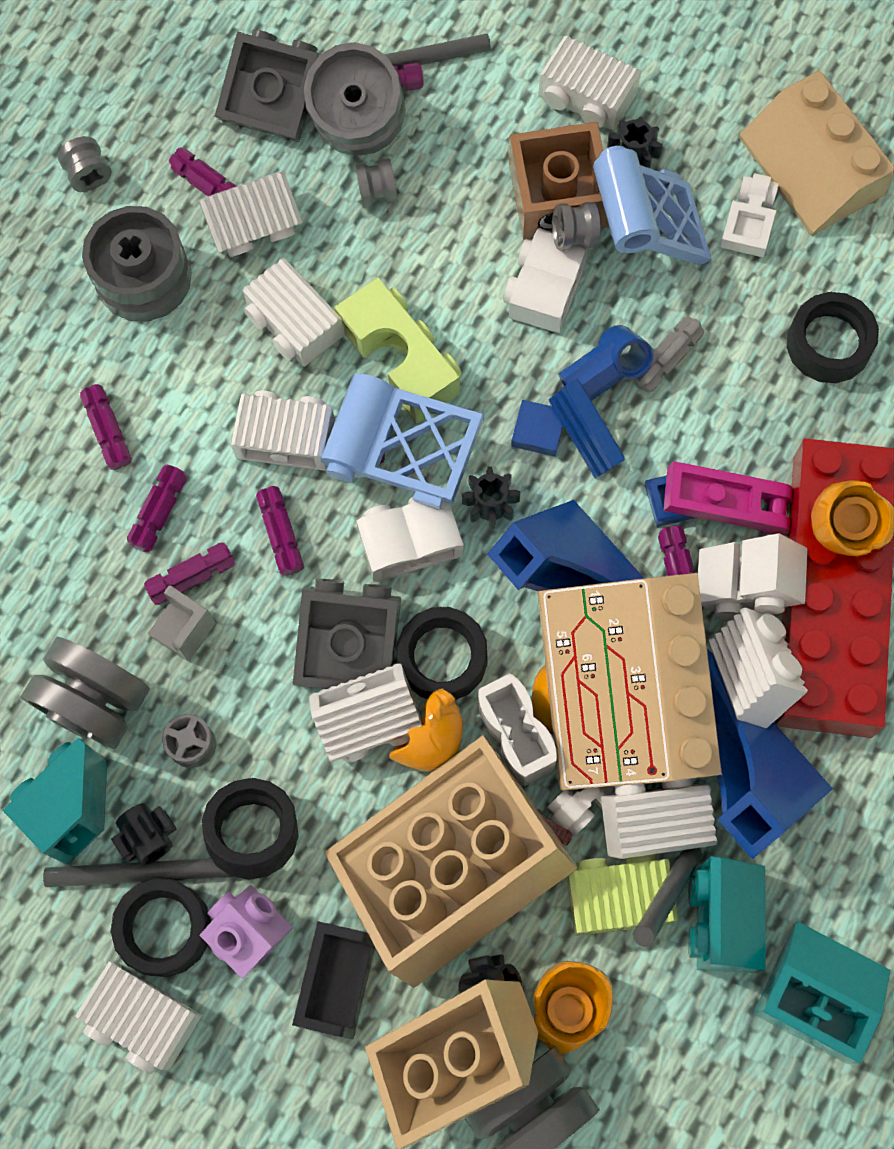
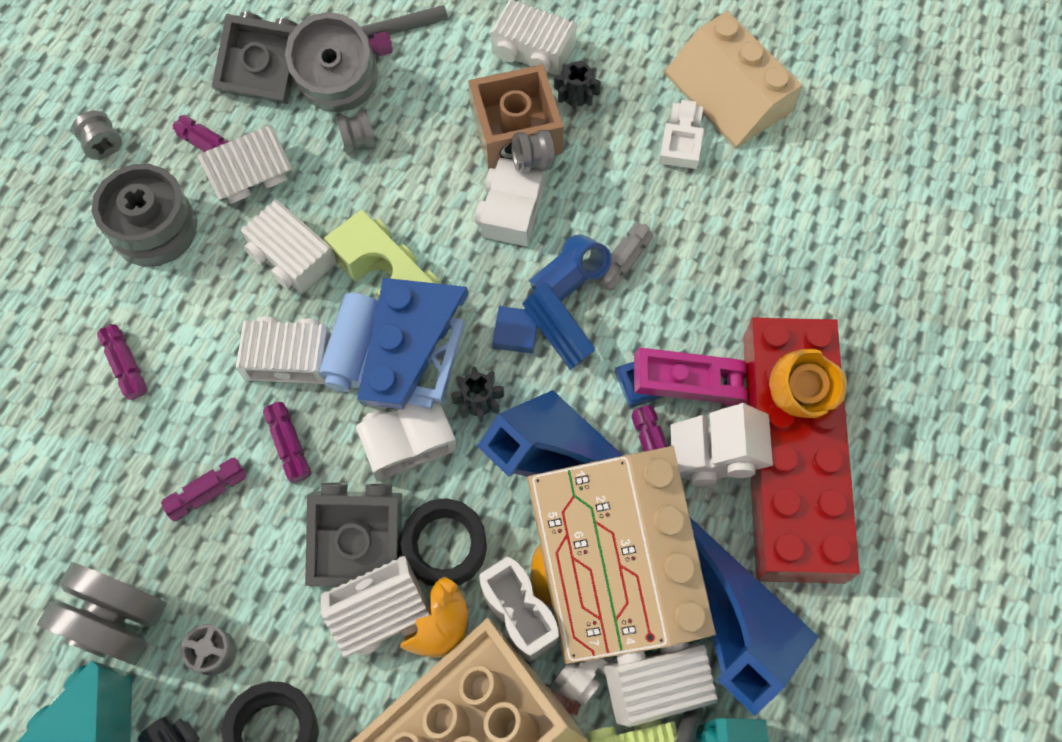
camera: 10 degrees left, 5 degrees down
(156, 508) = (171, 431): magenta axle -> none
(182, 625) = (198, 538): light grey panel -> none
(417, 426) = (403, 337): none -> blue wing
(637, 215) = (589, 132): light blue piece -> none
(757, 667) = (736, 529): white brick -> none
(845, 308) = (773, 205): black tyre -> none

